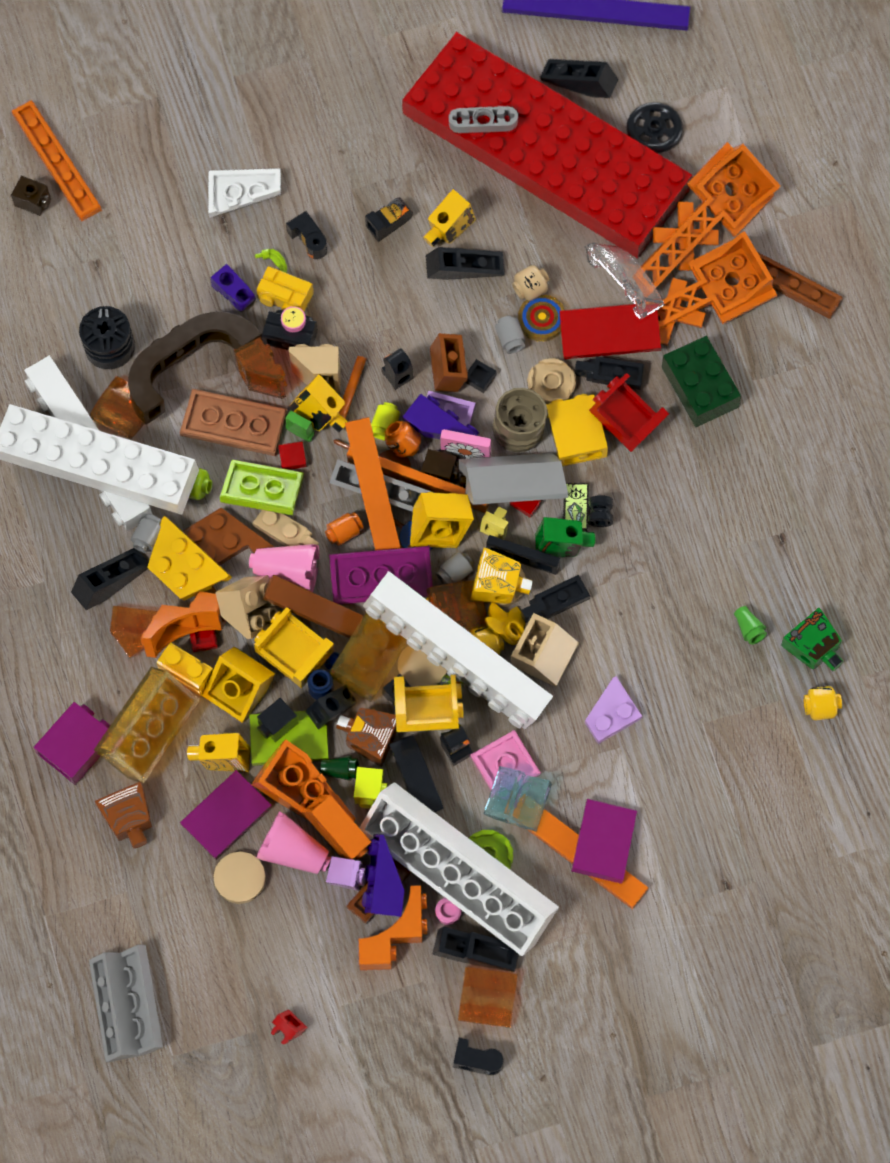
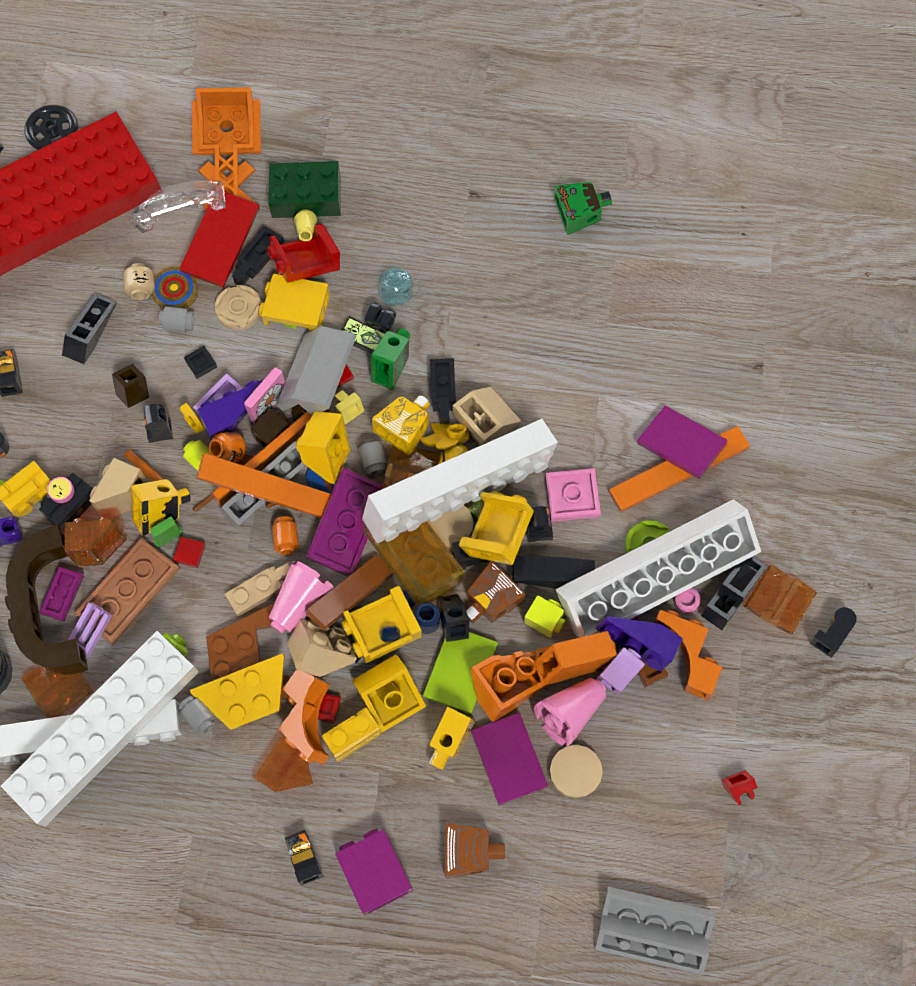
camera: 65 degrees left, 0 degrees up
(62, 679) = (303, 858): none -> black leg
(108, 578) = (223, 770): black slope -> none
(147, 724) = (393, 792): clear yellow brick -> none
(183, 403) = (90, 608): none -> lavender tile
(204, 370) = (61, 594): none -> magenta plate
(261, 487) = (206, 591): lime tile -> none
(276, 720) = (444, 670): black brick -> none
(289, 658) = (389, 633): none -> clear blue rock
(340, 768) = (513, 634): dark green cone -> none
(421, 388) = (191, 418): none -> yellow tile
(422, 327) = (130, 385): none -> dark brown brick
(448, 362) = (176, 378): dark orange brick -> none
(449, 219) = (40, 319): yellow torso -> none
(517, 798) = (612, 495): clear light blue slope -> none
(523, 408) = (263, 342): dark tan wheel -> none
(524, 555) = (388, 395): black tile -> none
(612, 712) = (566, 388): lavender wing -> none
(642, 511) = (395, 286): none -> clear light blue hair
(667, 397) = (305, 222): none -> light yellow cone
(751, 190) = (145, 89): orange piece -> none
(751, 628) = (542, 247): bright green cone -> none
(802, 289) = (271, 78): dark orange tile -> none
(822, 703) = (635, 223): yellow head -> none

